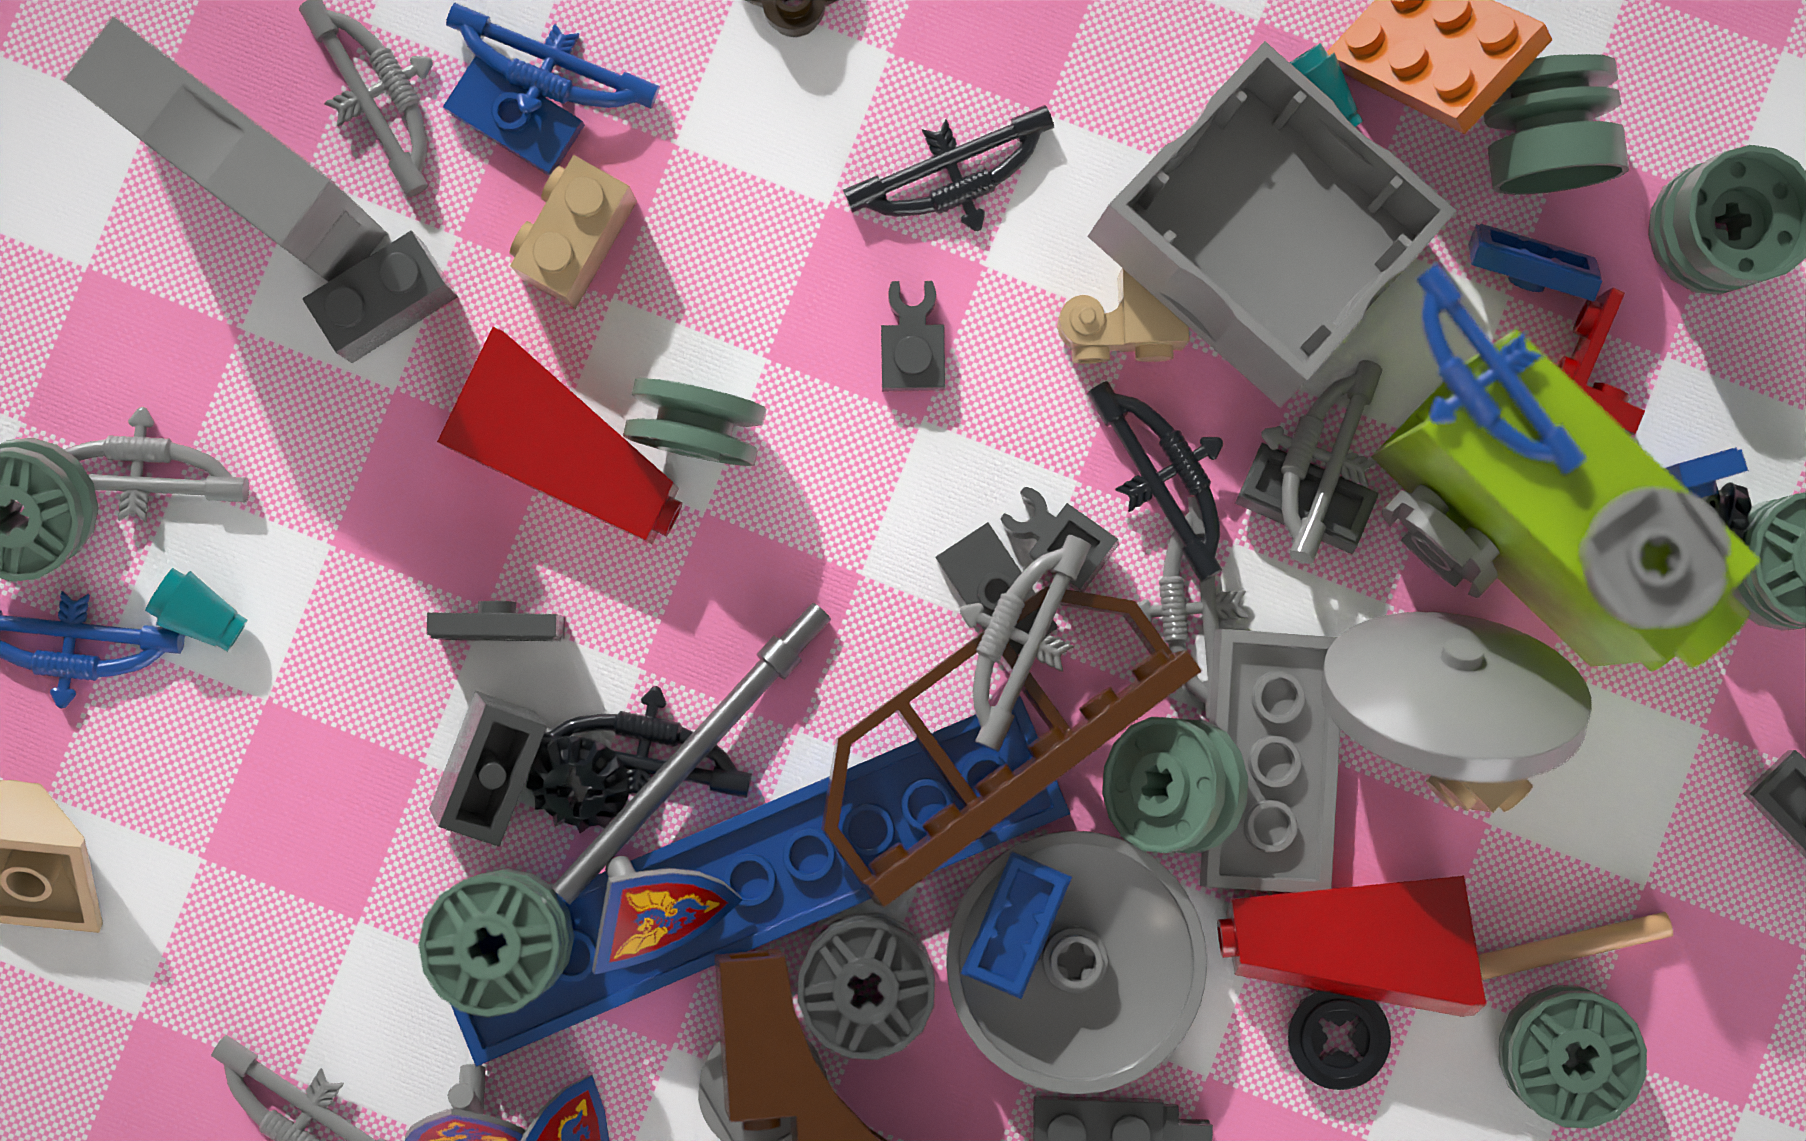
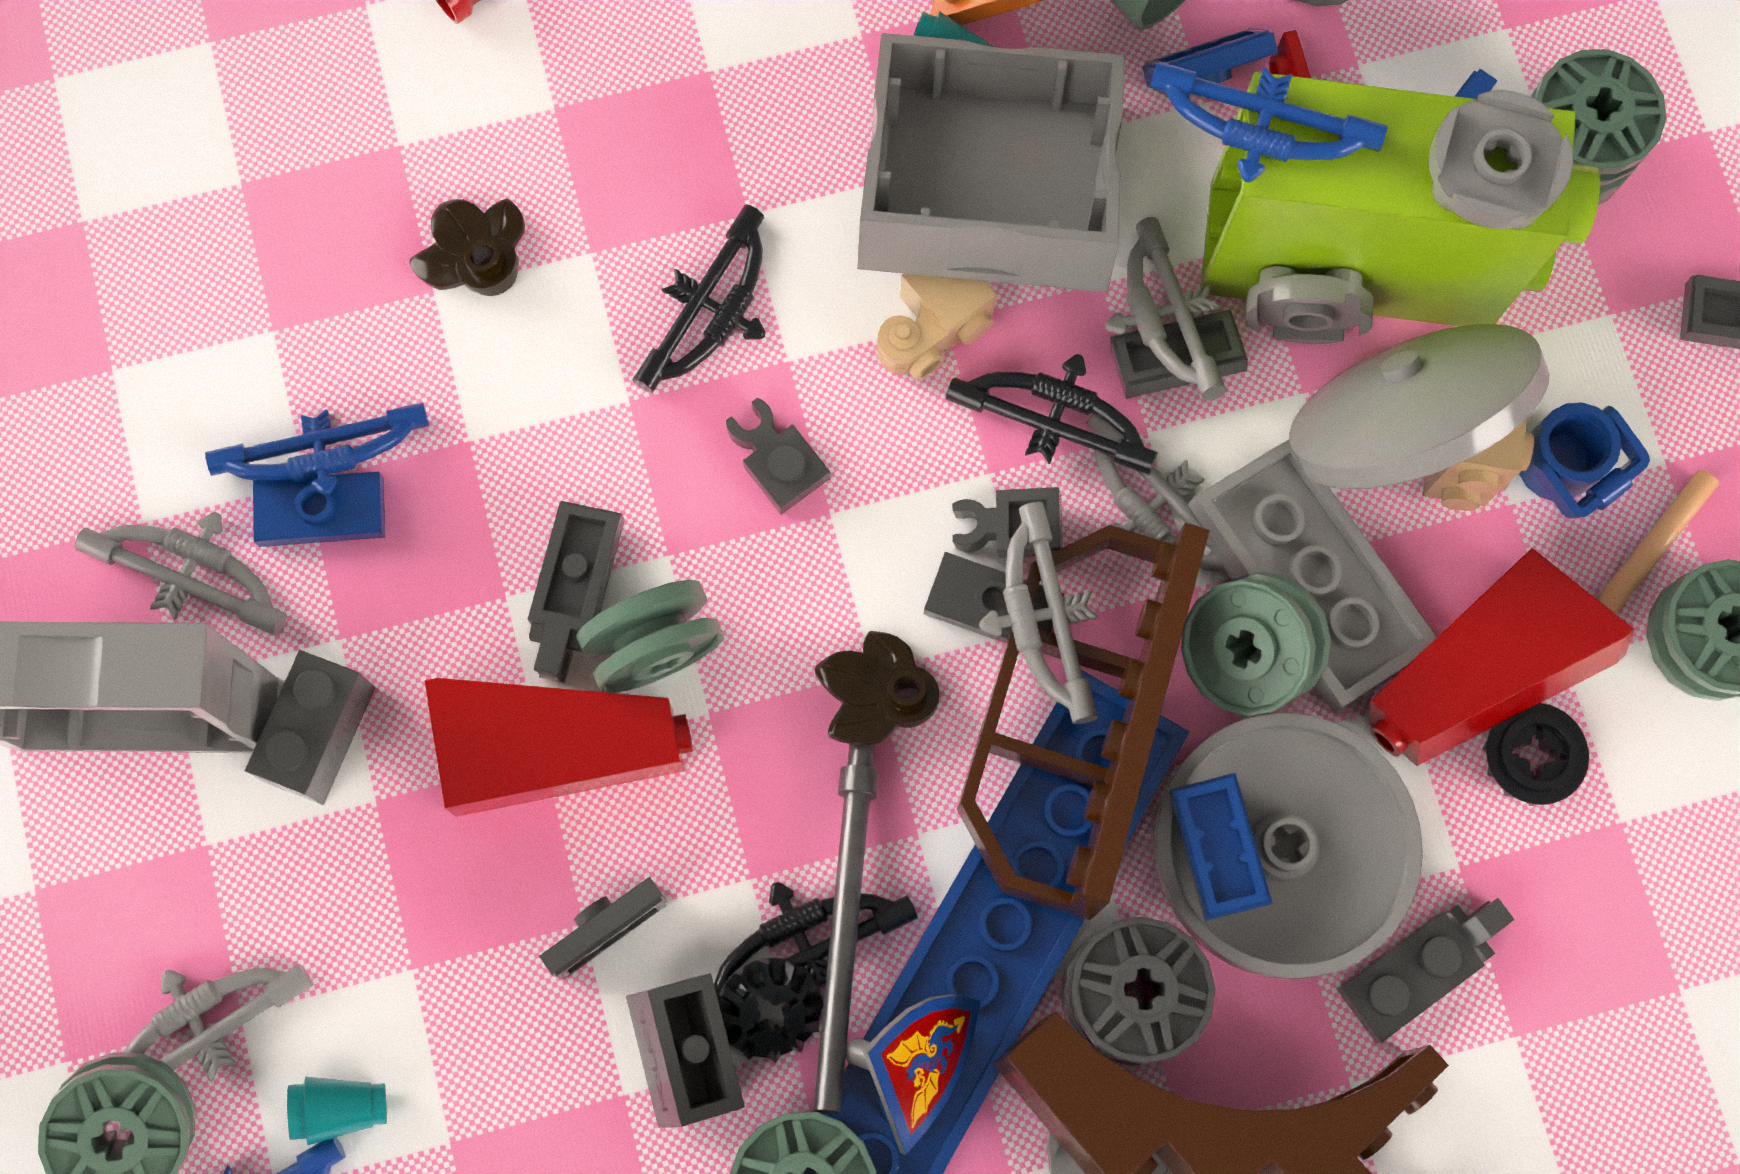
camera: 40 degrees left, 10 degrees down
(572, 231) = (435, 561): tan brick -> none
(670, 328) = (571, 583): none -> dark grey hinge
(843, 585) = (869, 686): none -> dark brown plate
(1569, 824) = (1575, 451): none -> blue piece

